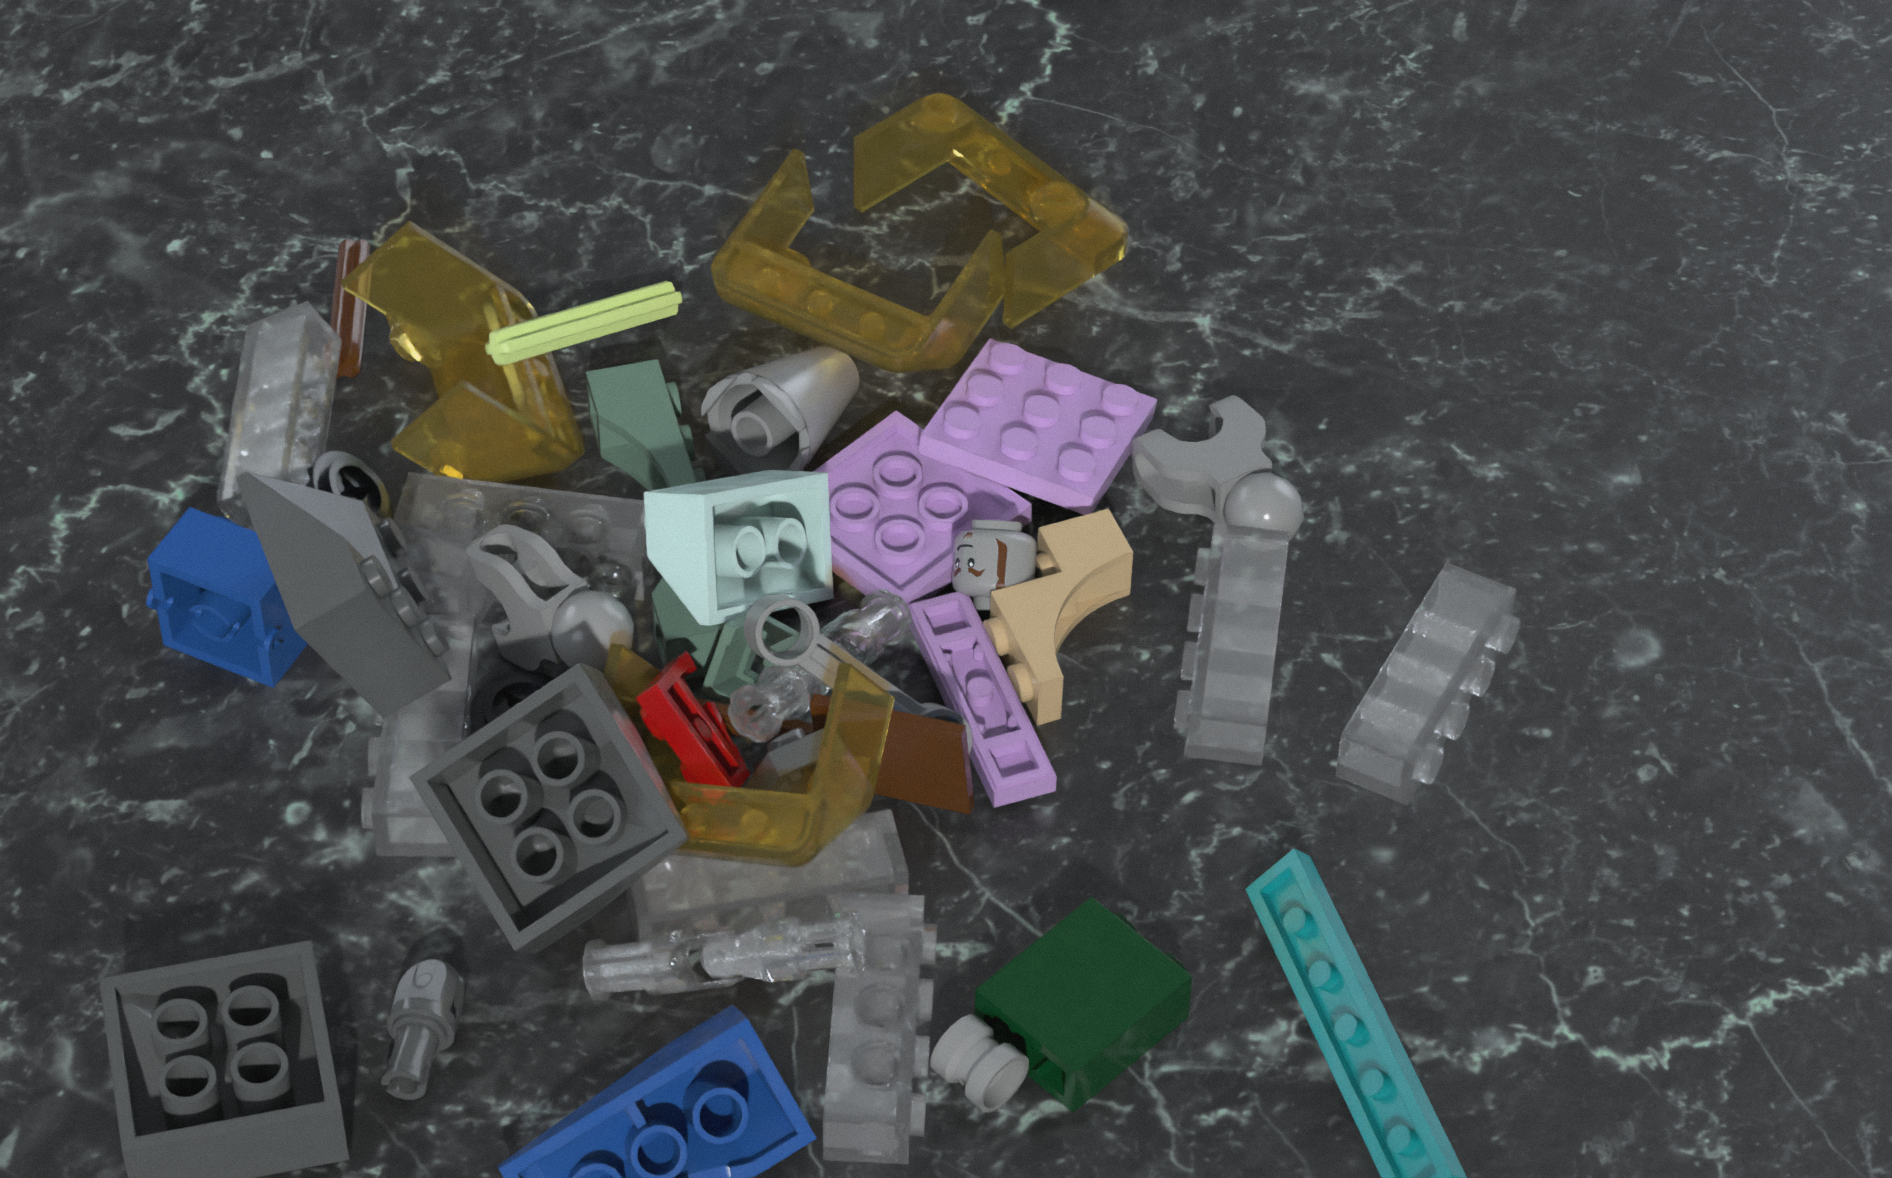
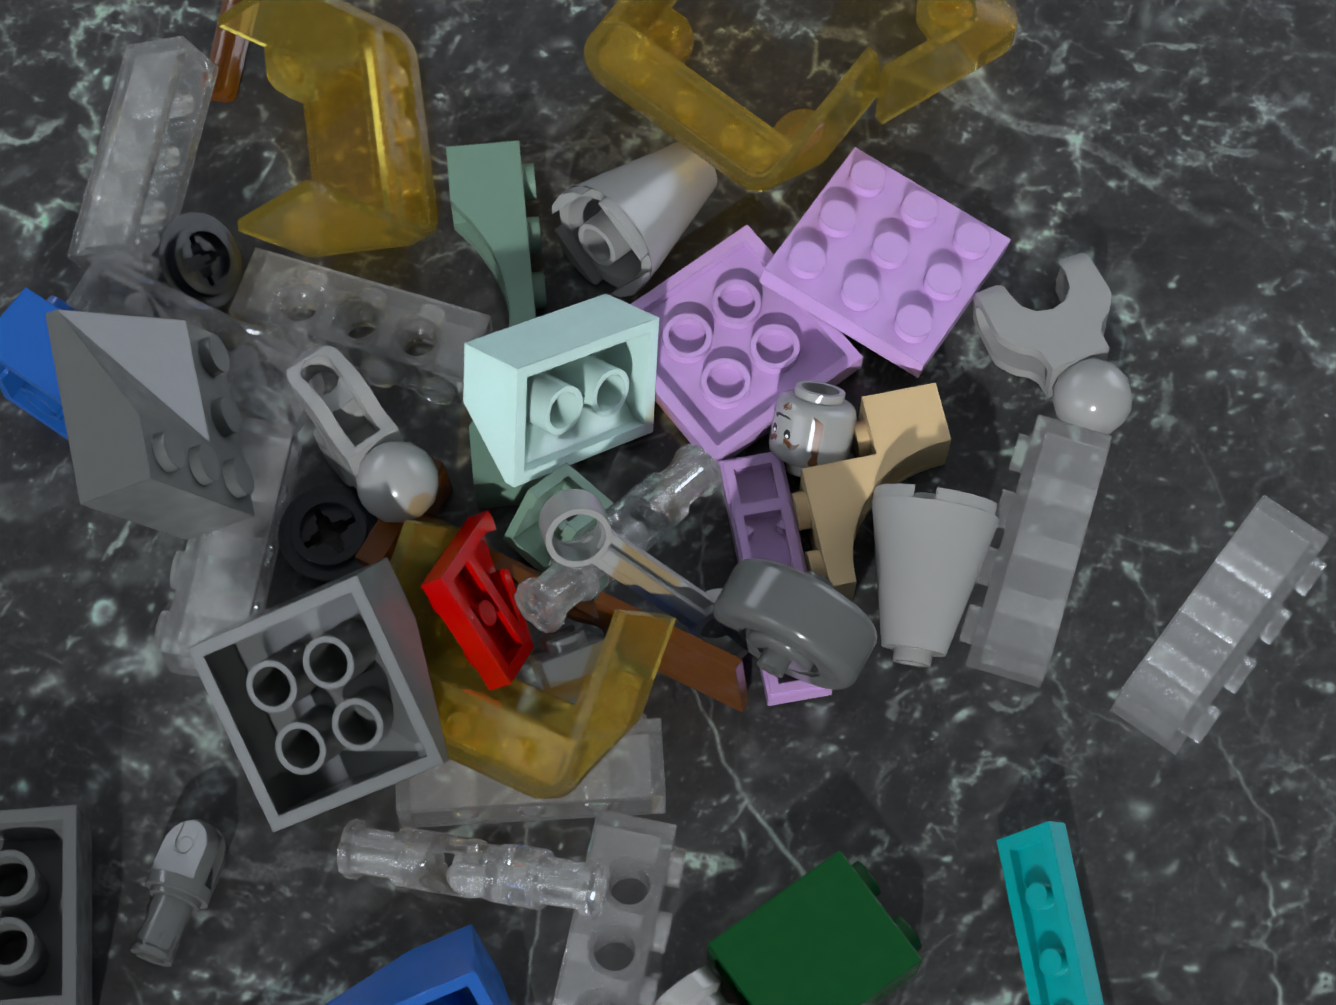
camera: 10 degrees right, 20 degrees up
(583, 323) = (453, 84): yellowish green axle -> none
(1015, 695) = (795, 623): none -> dark grey wheel
(1130, 654) = (927, 565): none -> light grey cone

